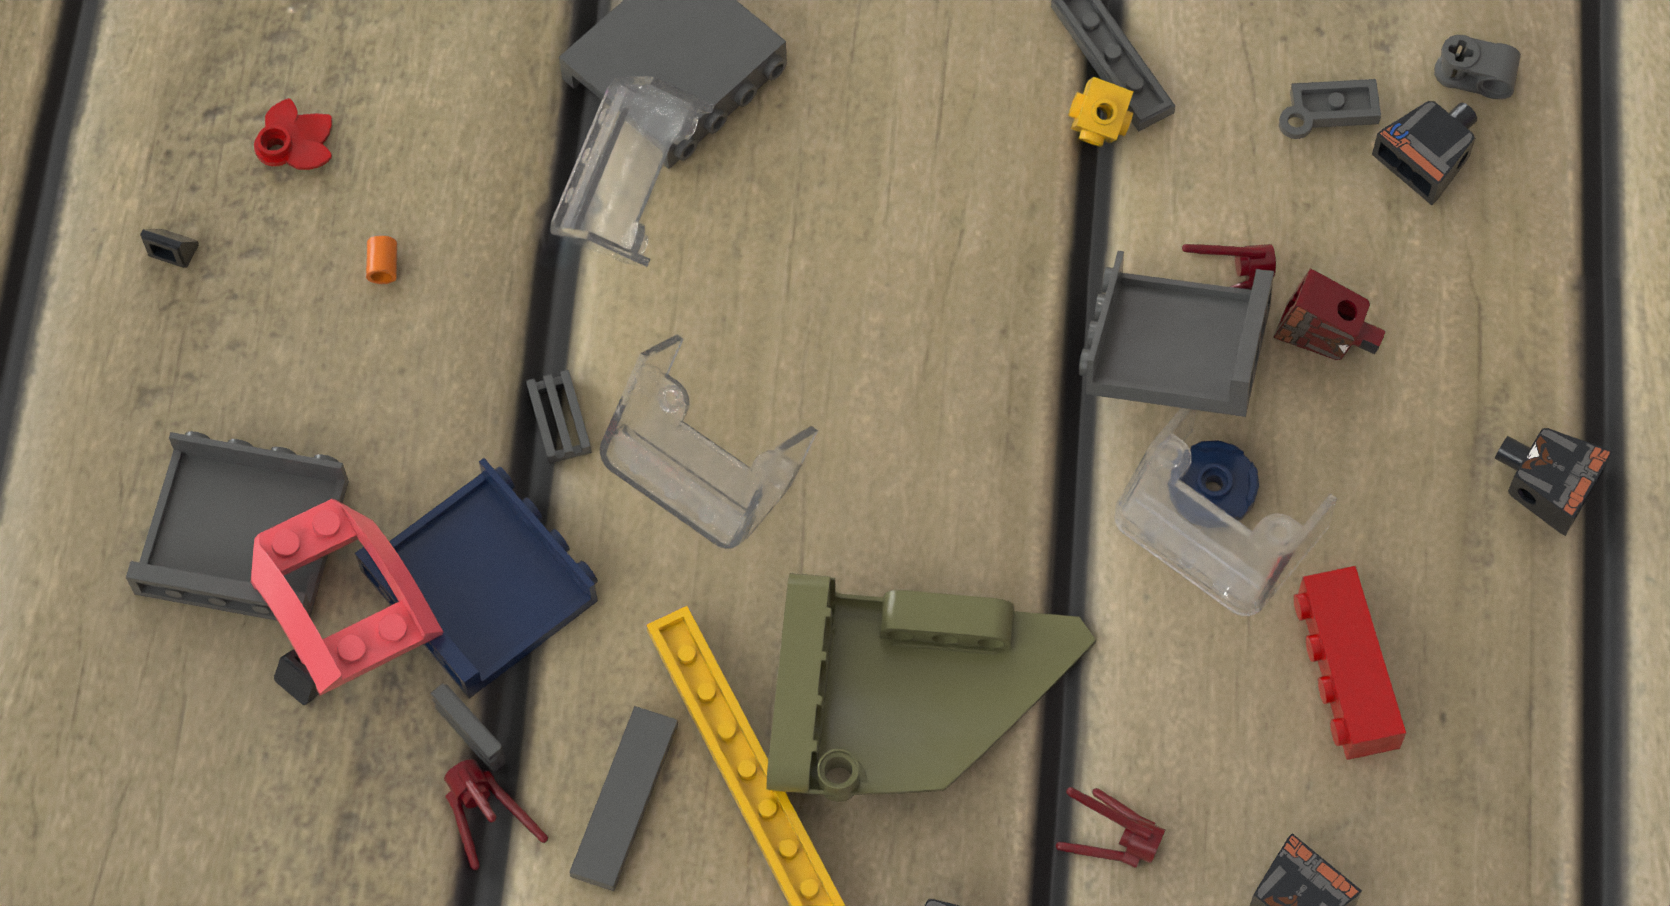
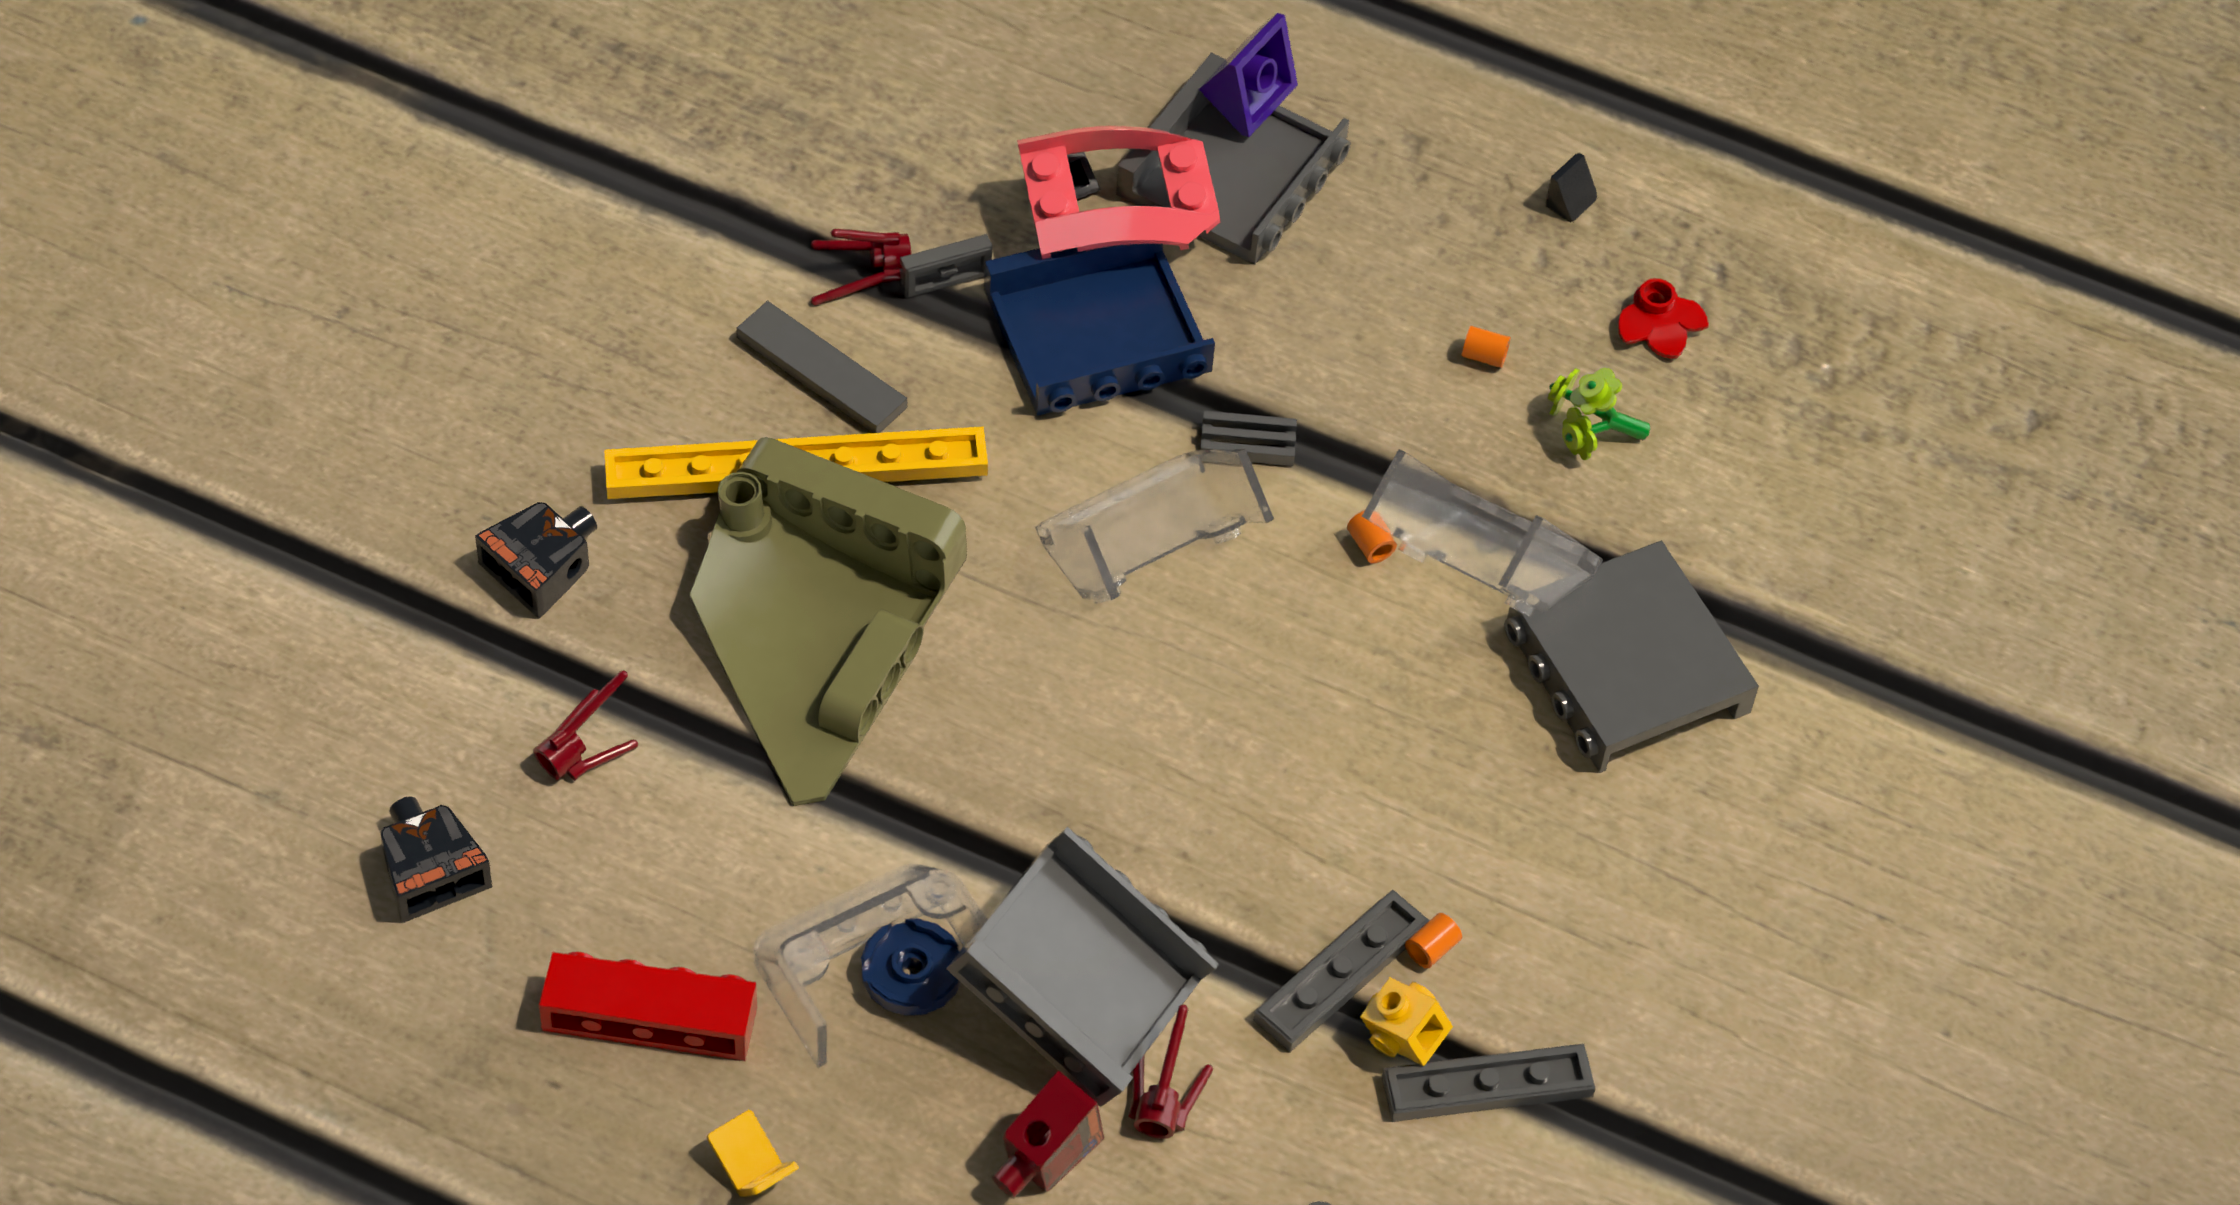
camera: 105 degrees right, 10 degrees down
(143, 533) = (1254, 77): none -> dark purple slope
(433, 140) = (1595, 397): none -> lime plant
(628, 286) = (1371, 540): none -> orange hinge
(1008, 124) = (1433, 940): none -> orange hinge
(1061, 182) = (1339, 971): none -> dark grey tile
(1442, 533) = (748, 1155): none -> yellow bracket

